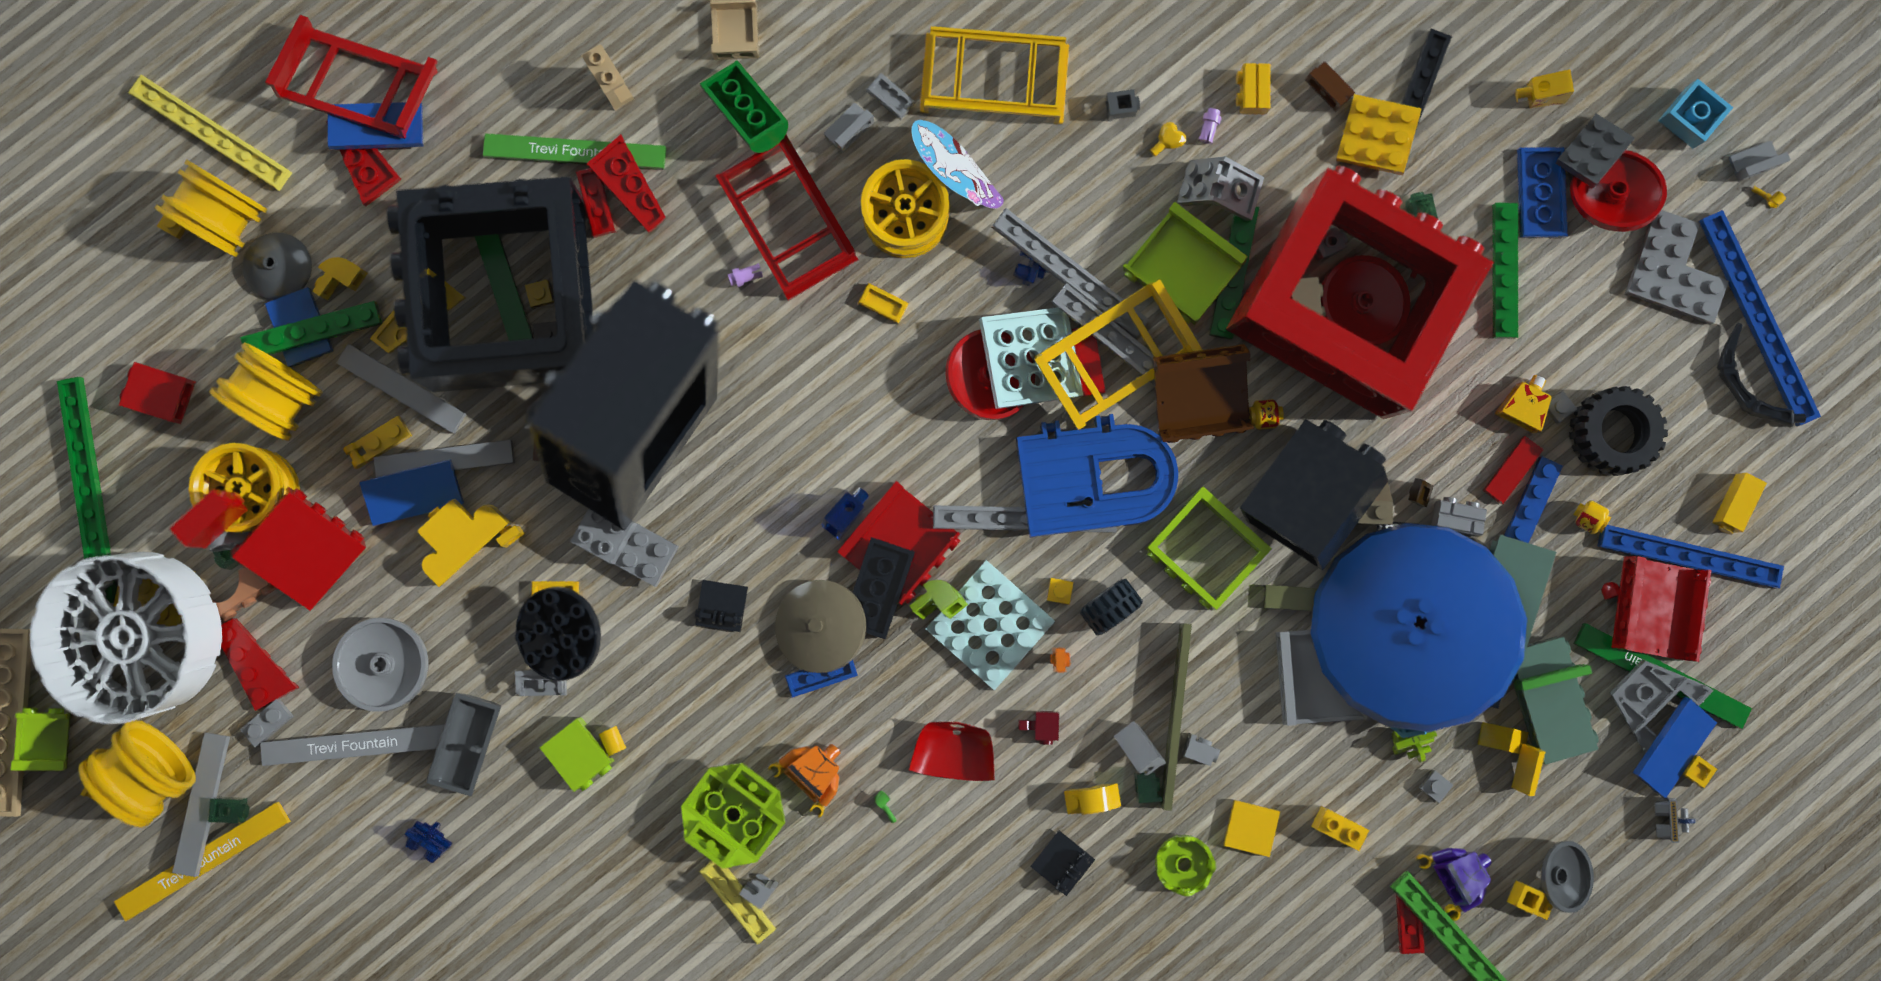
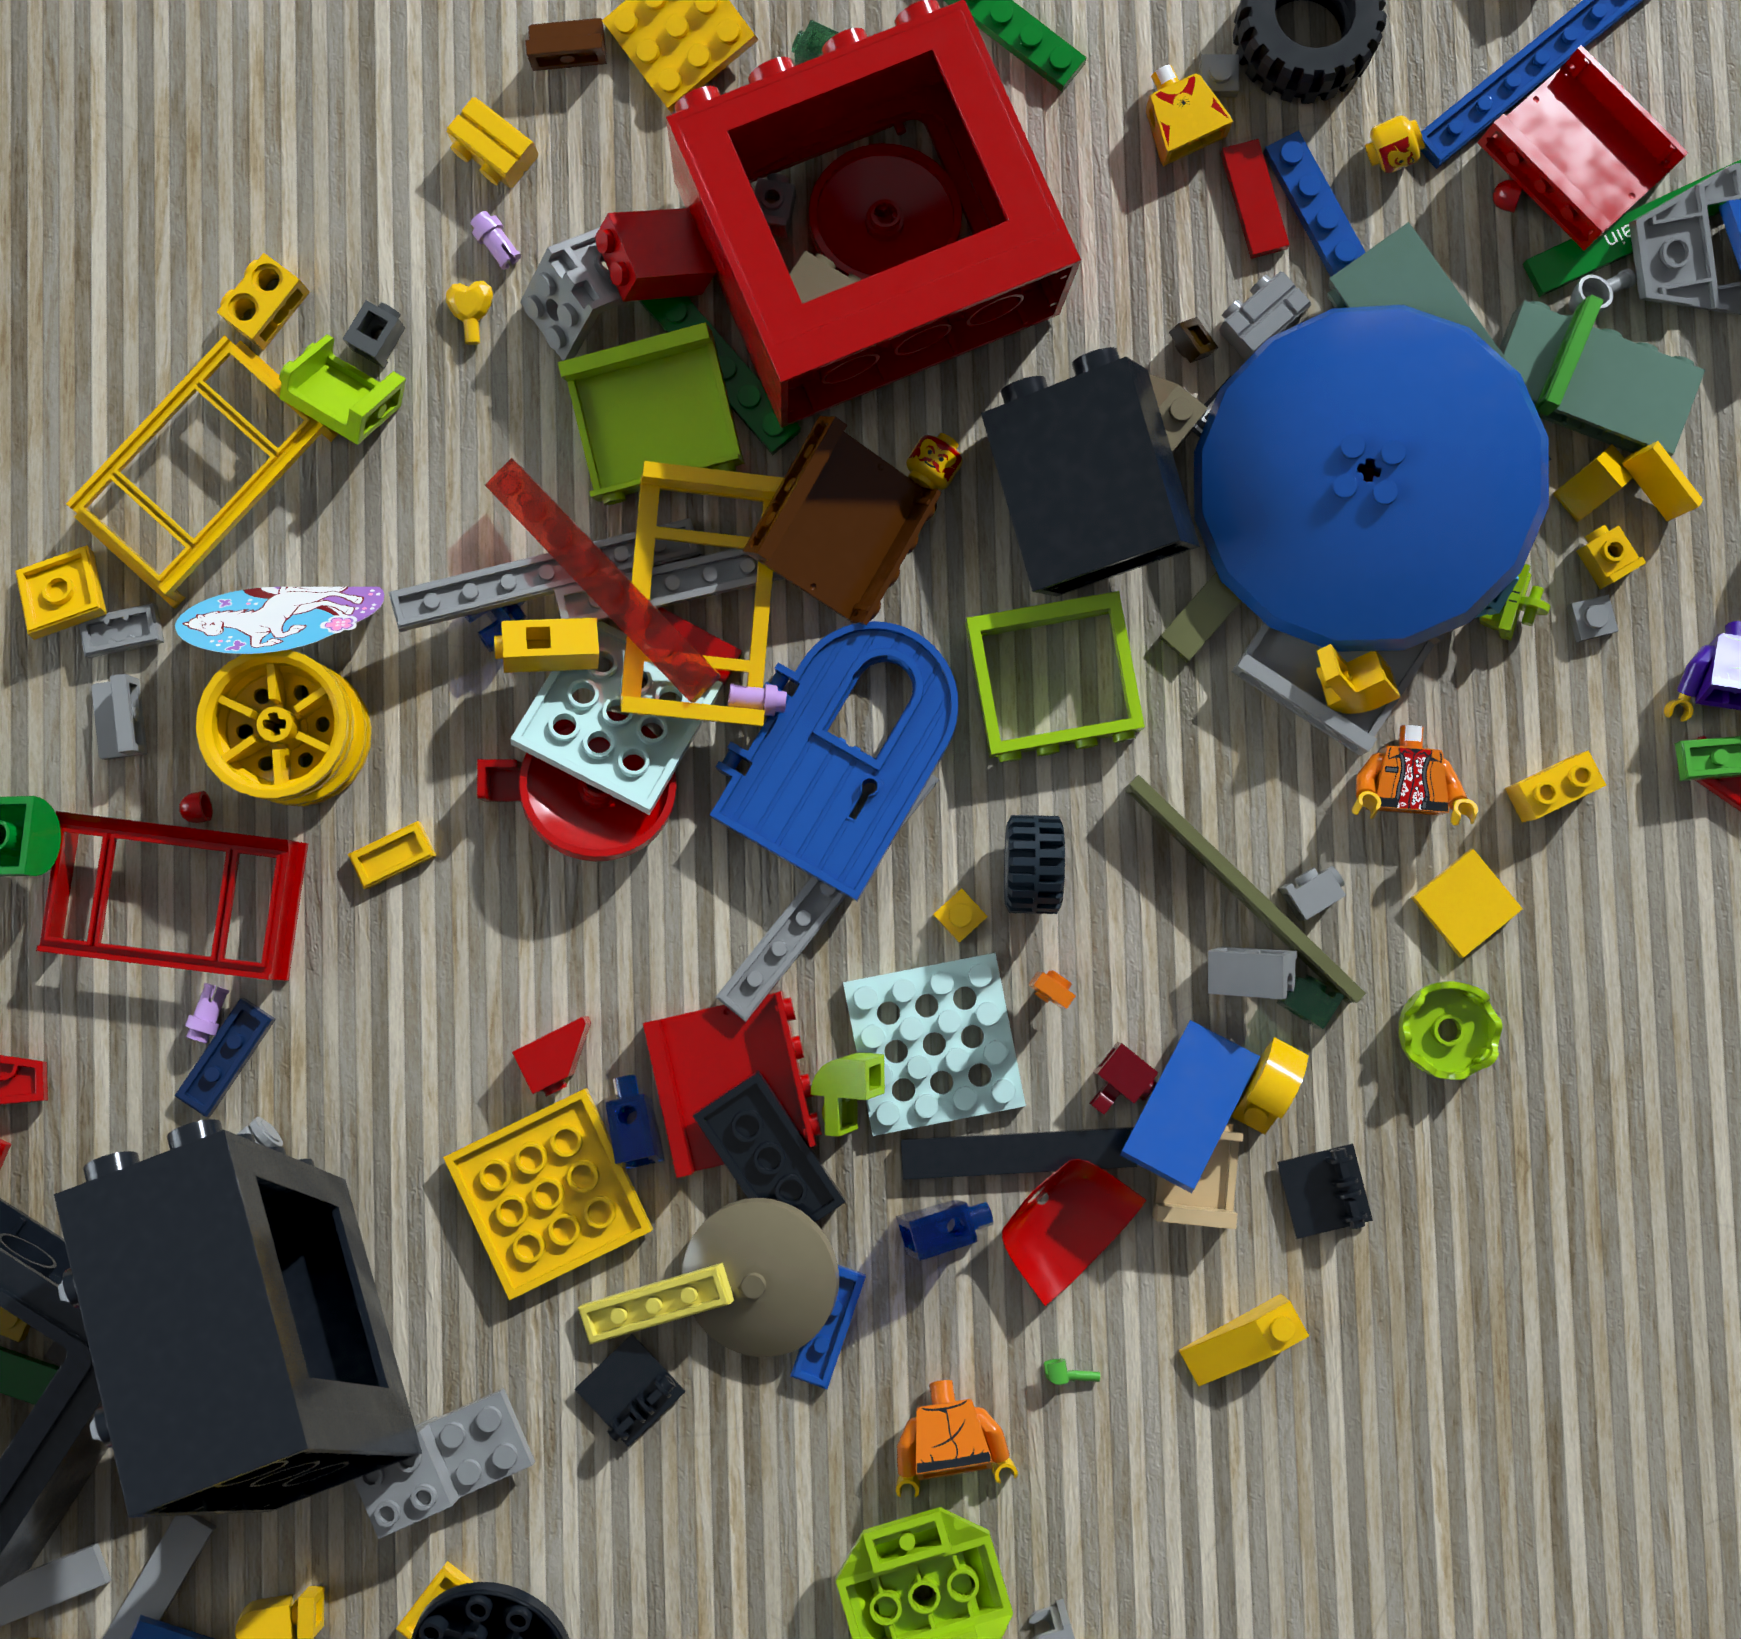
camera: 45 degrees left, 0 degrees up
(731, 299) = (225, 1057): none -> dark blue tile
(771, 587) = (656, 1303): none -> light yellow tile
(783, 497) = (547, 1194): none -> yellow plate
(835, 195) = (196, 807): none -> red hinge
(848, 451) = (553, 1057): none -> red slope
(887, 55) = (60, 592): none -> yellow tile
(901, 688) = (926, 1231): none -> clear blue torso
(957, 326) = (498, 780): none -> red panel
(963, 877) = (1244, 1340): none -> yellow slope
(969, 702) = (1012, 1152): none -> black tile
(1024, 795) = (1214, 1194): none -> tan panel
(1038, 301) = (548, 645): none -> yellow brick
(1054, 767) = (1190, 1106): none -> blue tile
(1080, 110) = (338, 392): none -> lime panel
(1088, 302) = (603, 581): none -> clear red plate
(1090, 419) = (758, 698): none -> lavender animal
(1096, 47) = (272, 306): none -> yellow brick
(1261, 207) = (654, 254): none -> red brick
(1289, 757) = (1411, 781): none -> torso
(1314, 695) = (1355, 684): none -> yellow brick
(1464, 771) = (1600, 563): none -> yellow brick
(1598, 670) = (1601, 288): none -> light grey bar

